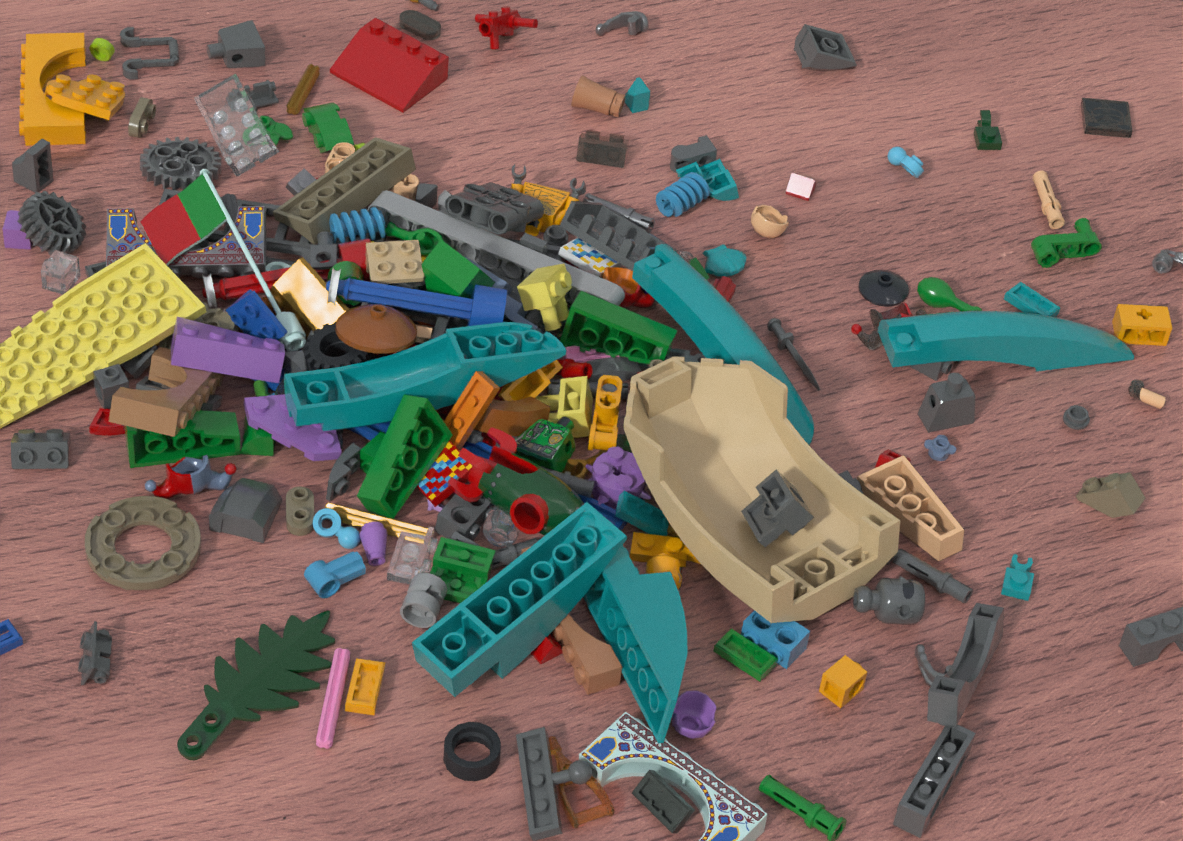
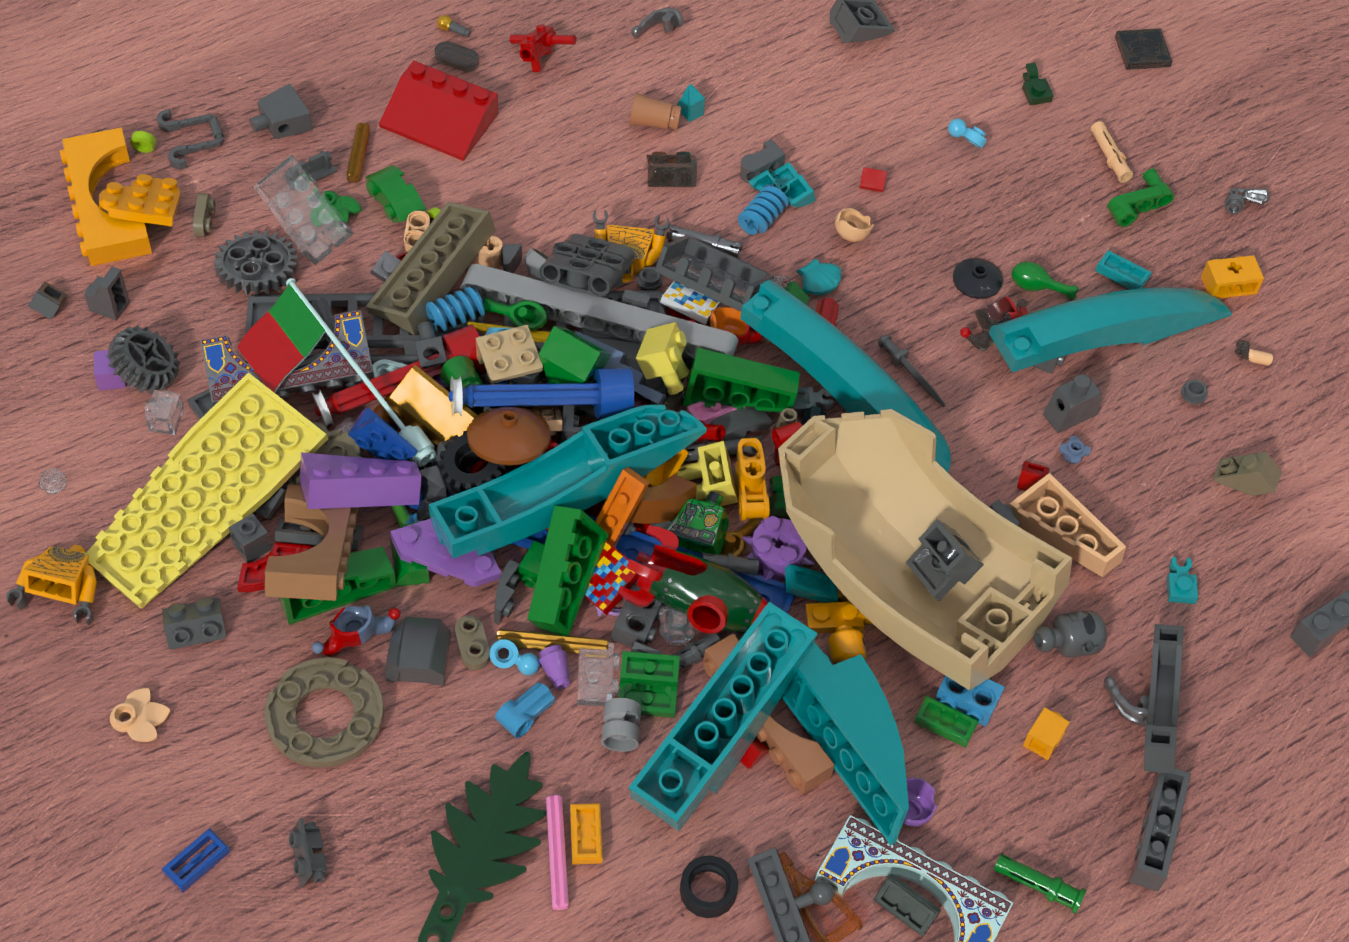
camera: 10 degrees left, 10 degrees up
(941, 581) = (1104, 597): dark grey pin -> none

